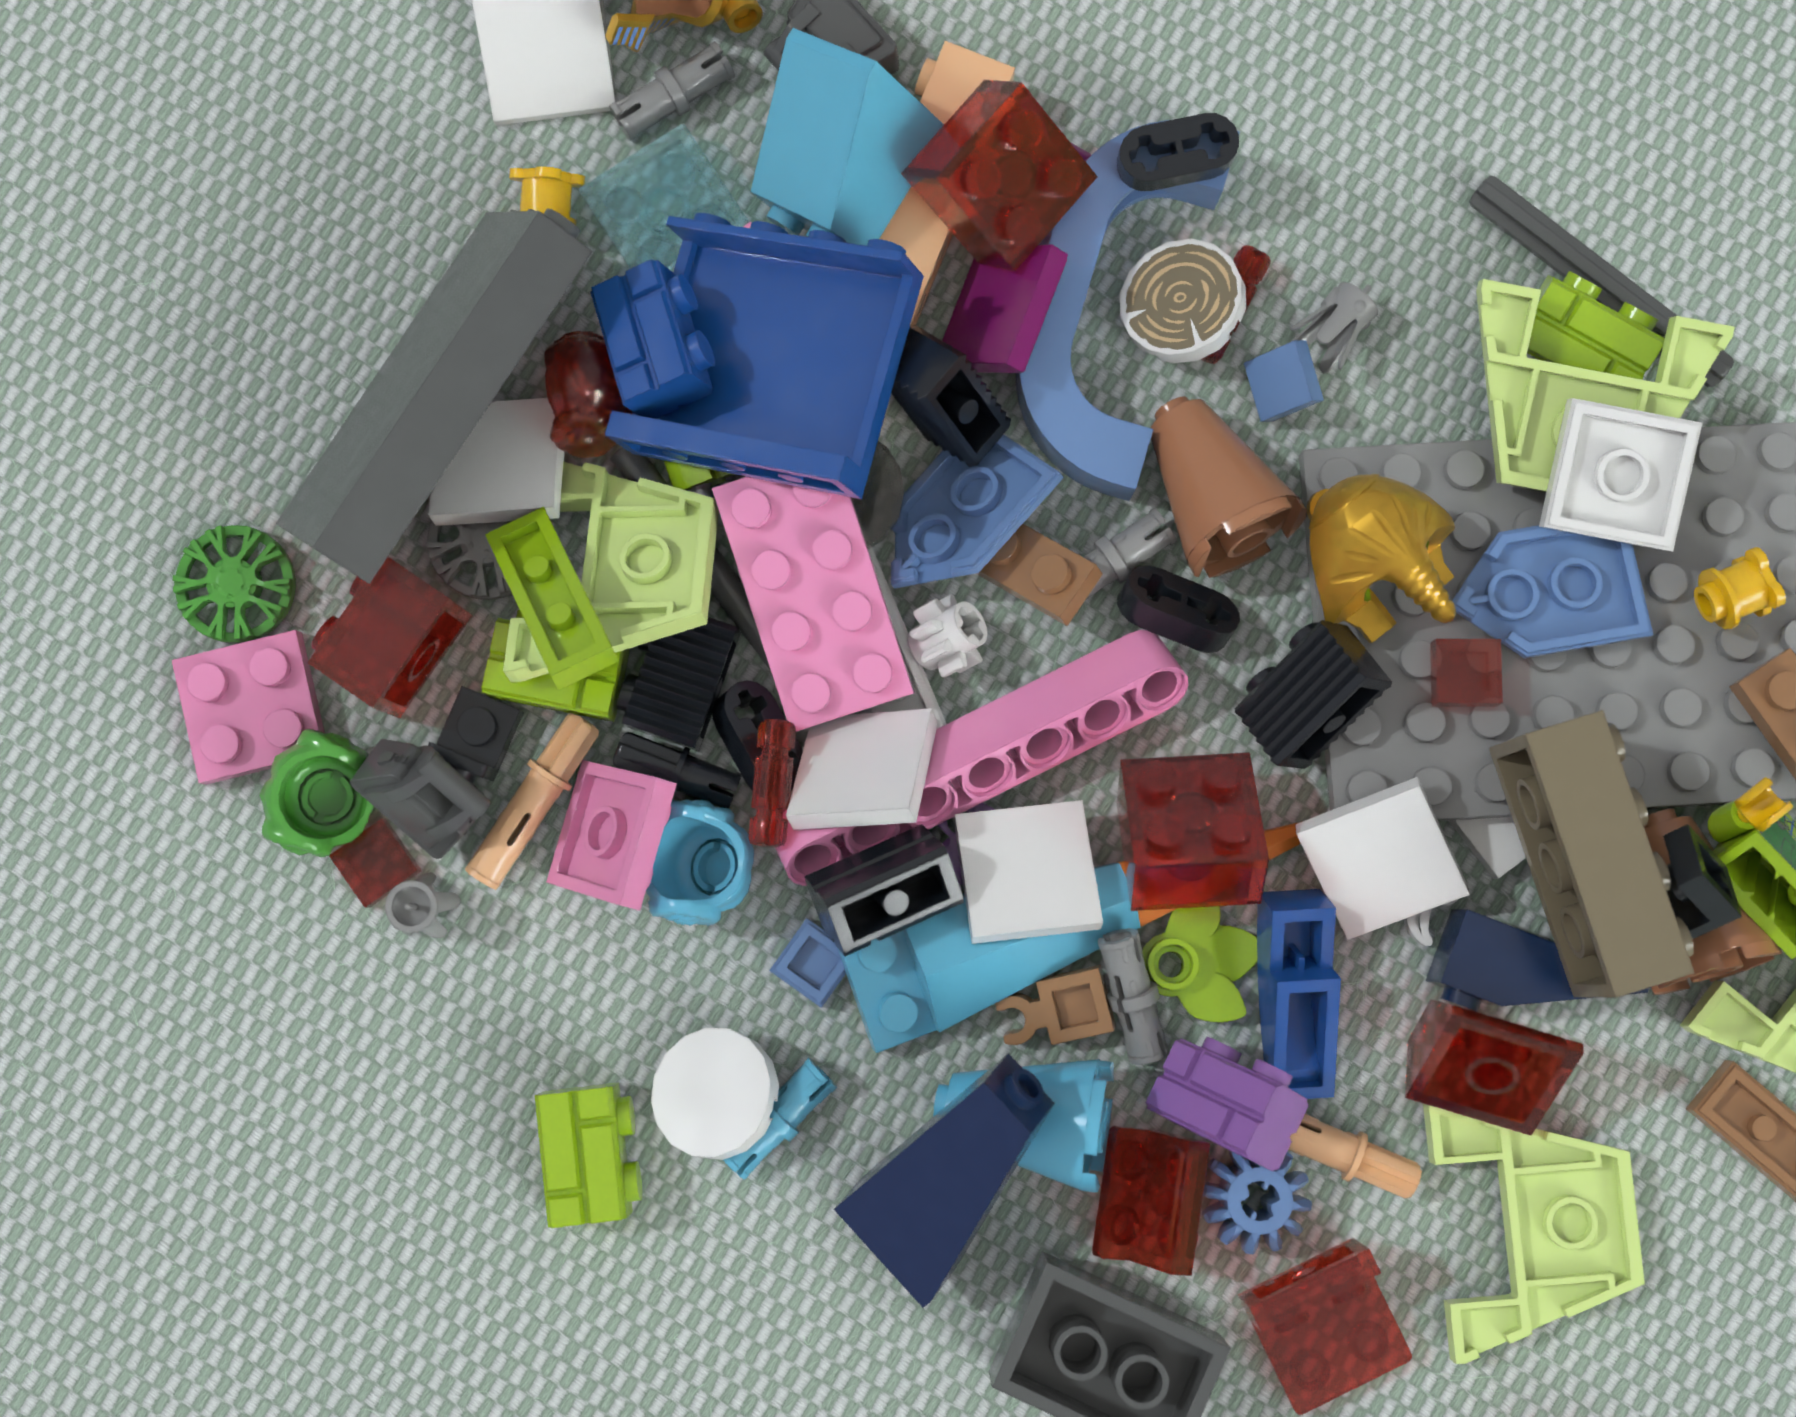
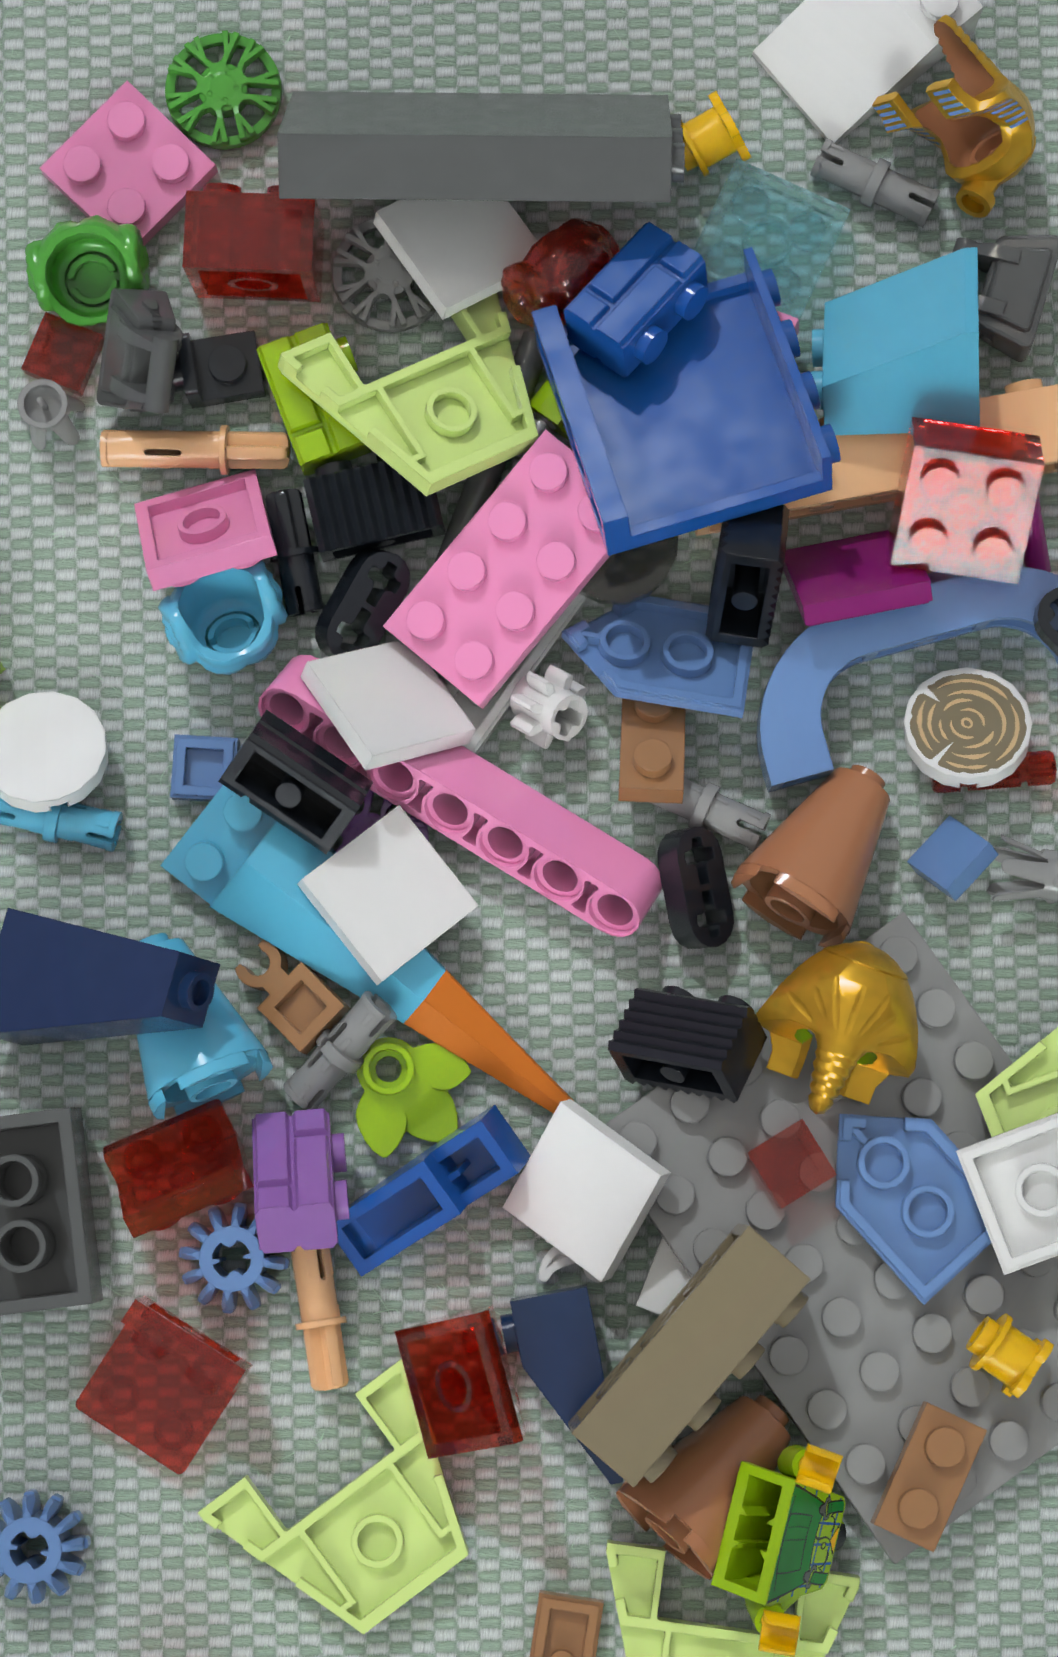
camera: 65 degrees right, 0 degrees up
(551, 598) = (365, 353): lime plate -> none
(772, 783) = (328, 635): clear red axle -> none
(1191, 831) = (506, 1010): clear red brick -> none
(1699, 883) = (720, 1457): black bracket -> none

